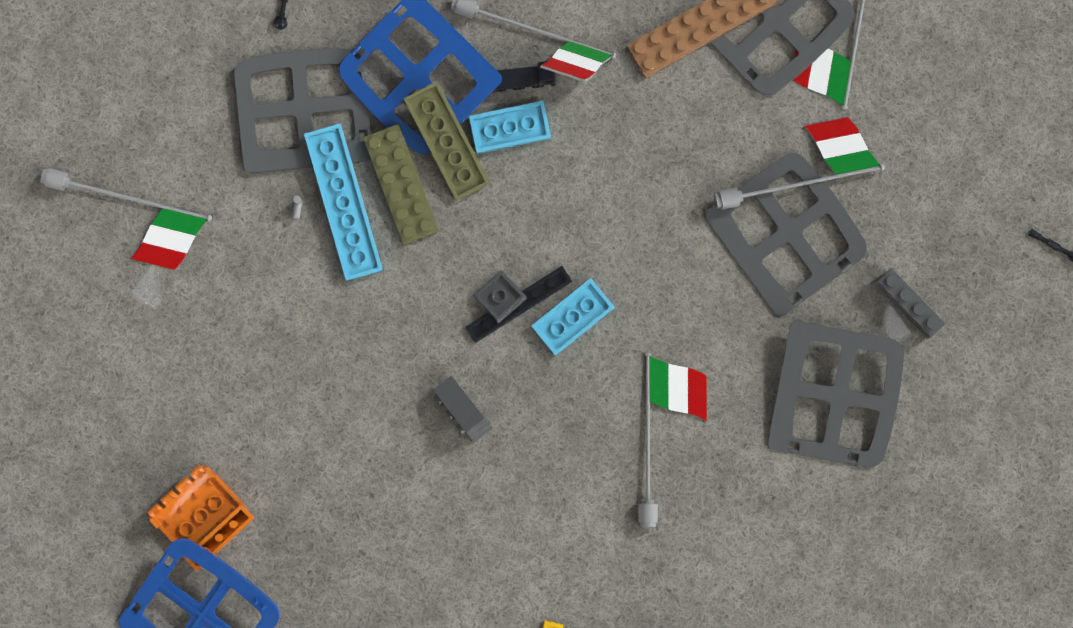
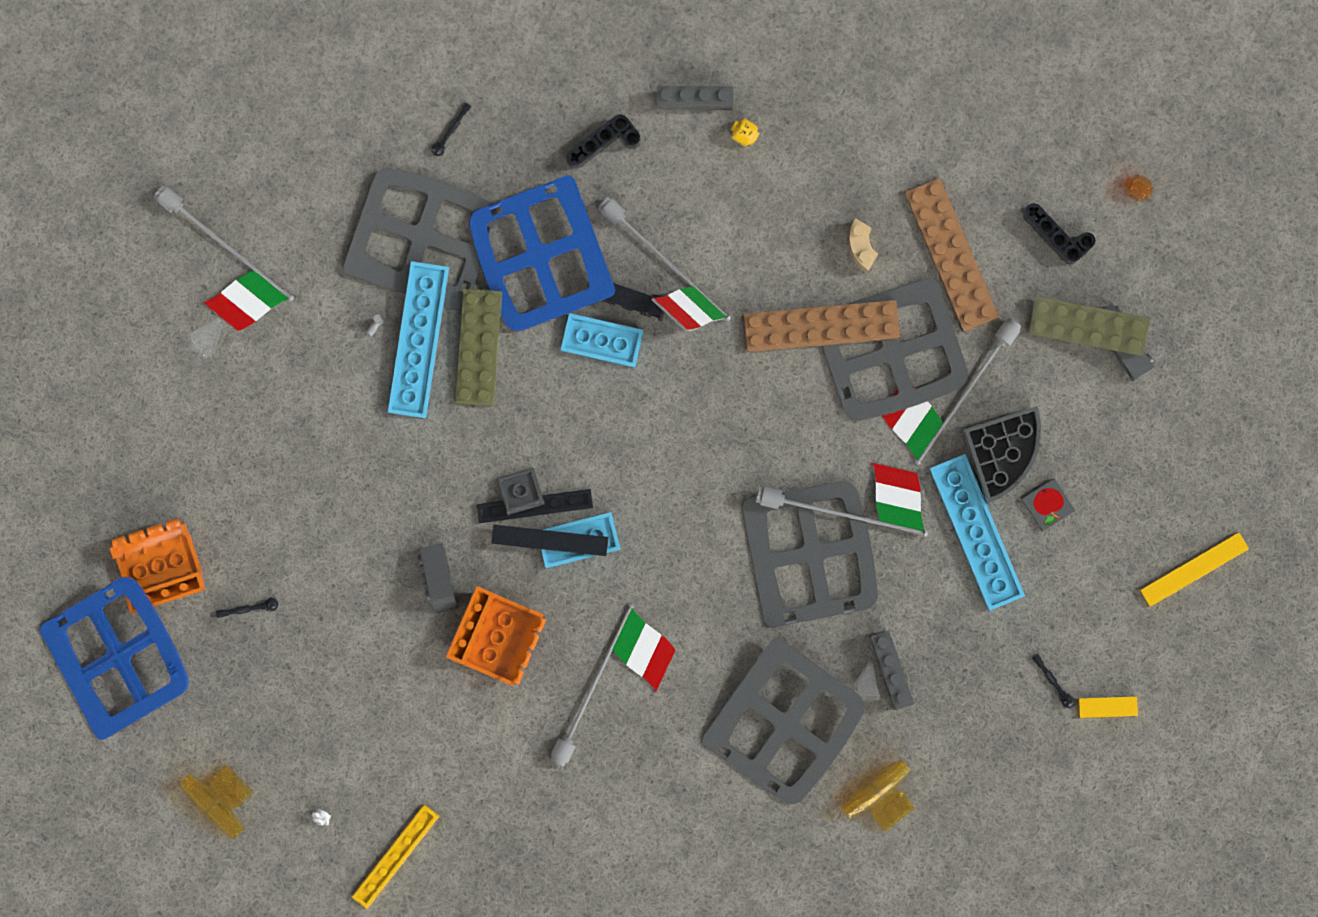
camera: 25 degrees right, 0 degrees up
(319, 504) = (269, 604): none -> black piece
(446, 140) = (537, 326): olive plate -> none
(540, 437) = (496, 636): none -> orange slope
(547, 328) = (549, 540): none -> black tile
(917, 61) = (1003, 451): none -> dark grey brick
(927, 145) = (977, 532): none -> medium azure plate
(953, 421) = (882, 797): none -> clear yellow plate
(978, 91) = (1048, 505): none -> tile

